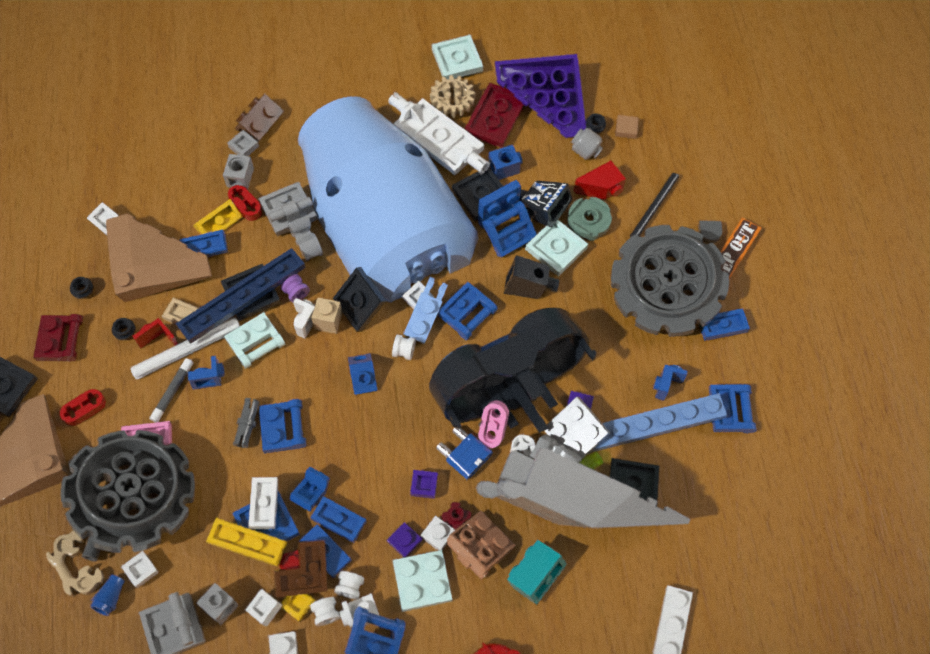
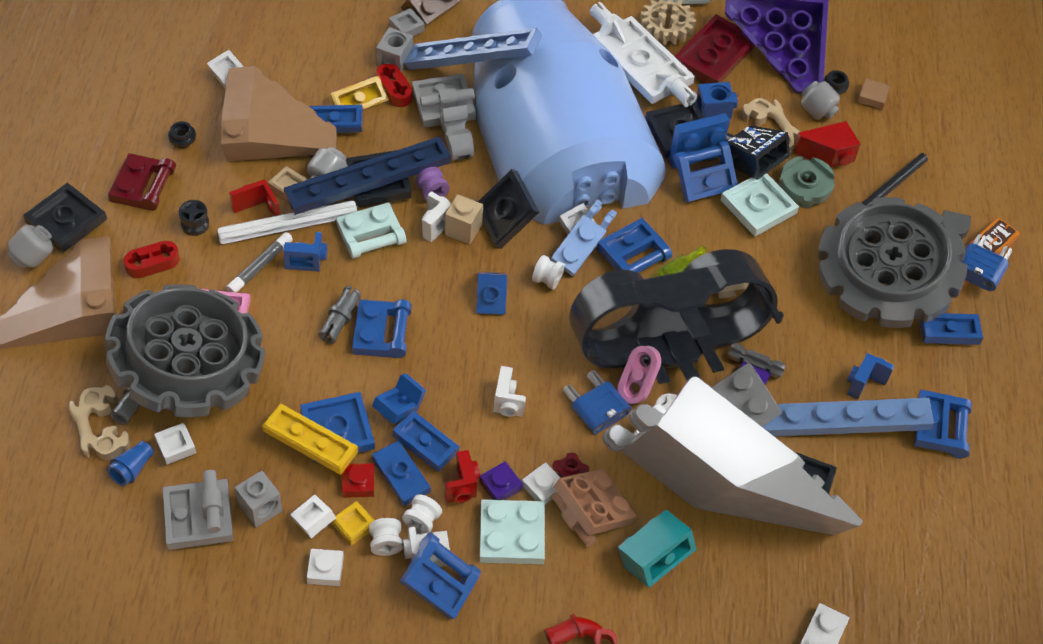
camera: 10 degrees right, 10 degrees down
(104, 358) = (188, 212): none -> black wheel
(122, 323) = (219, 186): black plate -> none
(205, 290) = (326, 161): none -> light grey head
(263, 503) = (340, 399): white plate -> none
(303, 164) = (473, 49): none -> medium blue plate
(309, 576) = (375, 492): reddish brown plate -> none
(377, 540) = (468, 473): none -> red bracket
(395, 473) = (506, 400): none -> white bracket
(424, 484) = (539, 425): dark purple plate -> none
(505, 315) = (681, 262): none -> clear neon green axle
(529, 279) = (718, 227): black torso -> none
(541, 161) = (761, 109): none -> tan helmet
(581, 386) = (757, 359): none -> flat silver axle
(740, 265) = (984, 266): none -> blue piece

